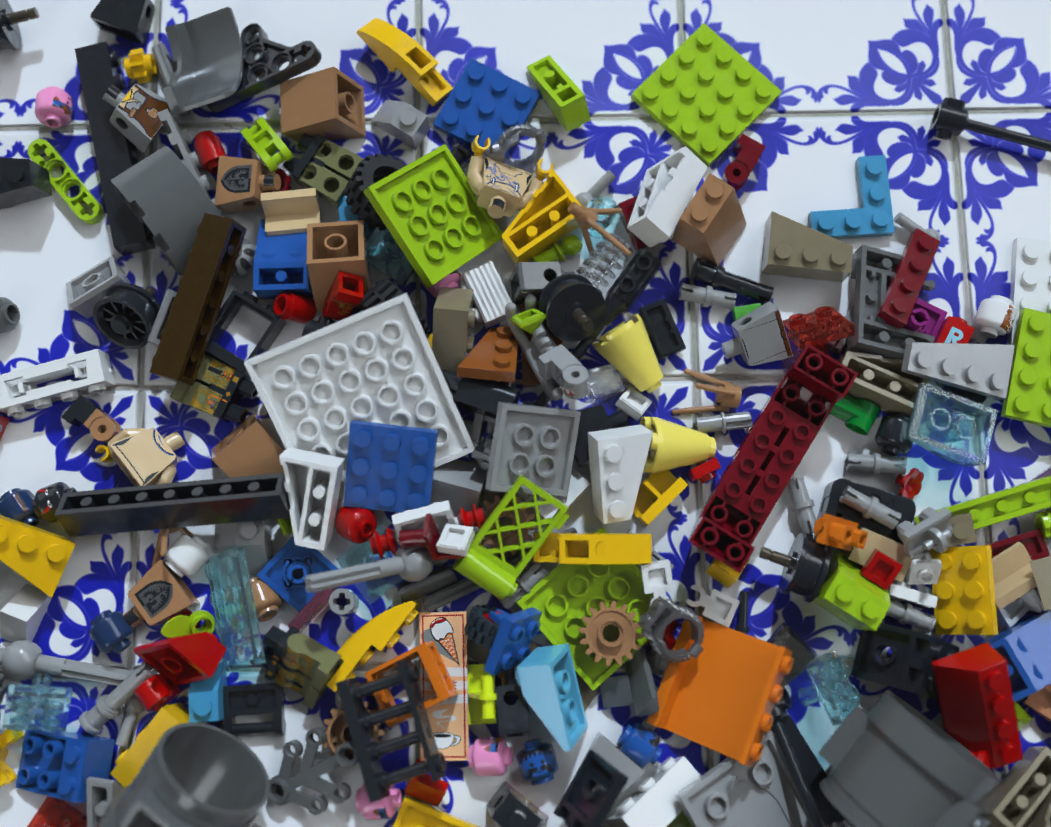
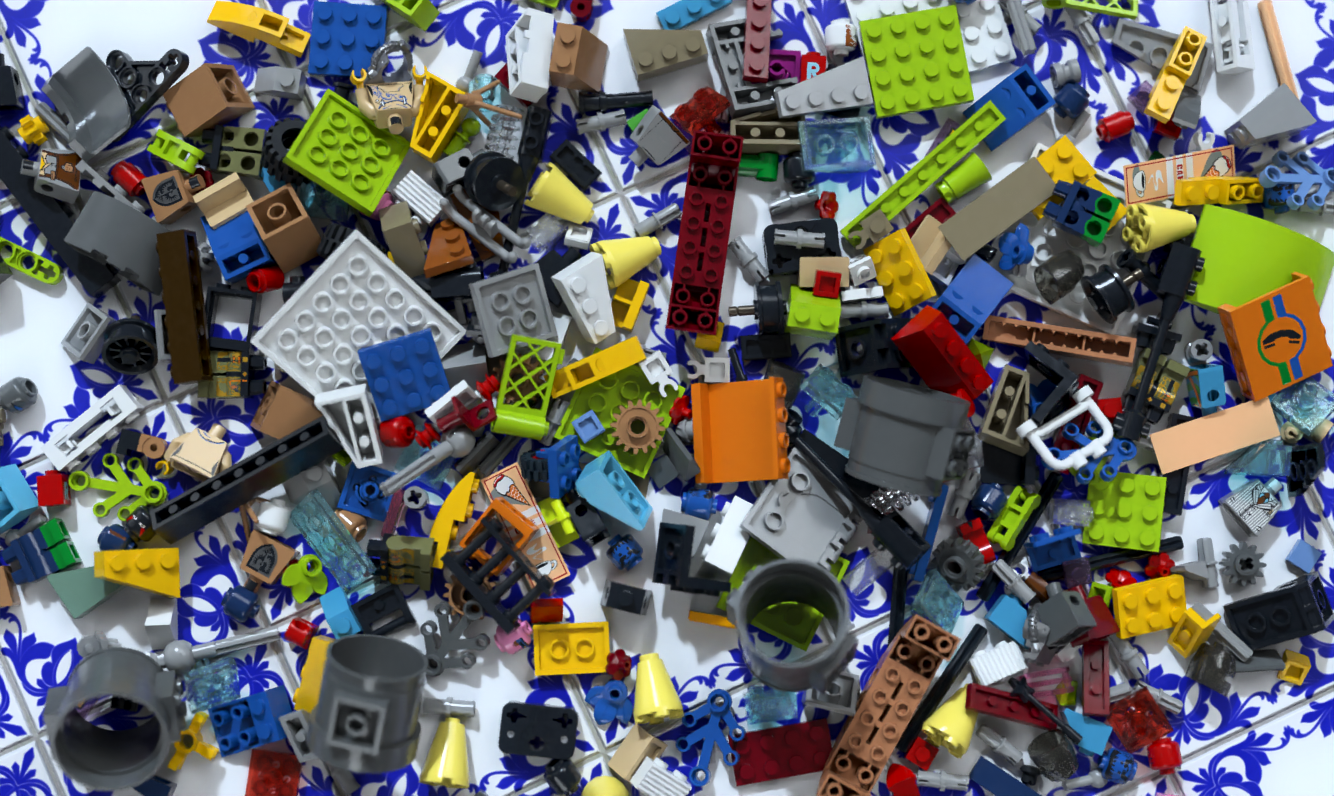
camera: 35 degrees left, 5 degrees up
(54, 455) = (123, 487): none -> lime plant
(110, 705) = (267, 659): light grey pin -> none
(133, 708) = (286, 652): light grey bar -> none
(183, 657) = (309, 595): red slope -> none
(342, 300) = (302, 258): red leg -> none
(455, 539) = (483, 407): white tile -> none
(490, 756) = (586, 564): bright pink head -> none
(528, 320) = (463, 206): lime slope -> none
(557, 608) = (588, 426): none -> medium blue tile
(565, 370) = (511, 235): light grey leg -> none
(655, 622) = (668, 397): flat silver piece -> none
(704, 471) = (659, 267): red plate -> none
(725, 394) = (650, 197): medium nougat plant -> none
(783, 607) = (765, 347): none -> black plate
(839, 533) = (782, 269): orange hips -> none
(929, 533) = (850, 240): light grey hips -> none

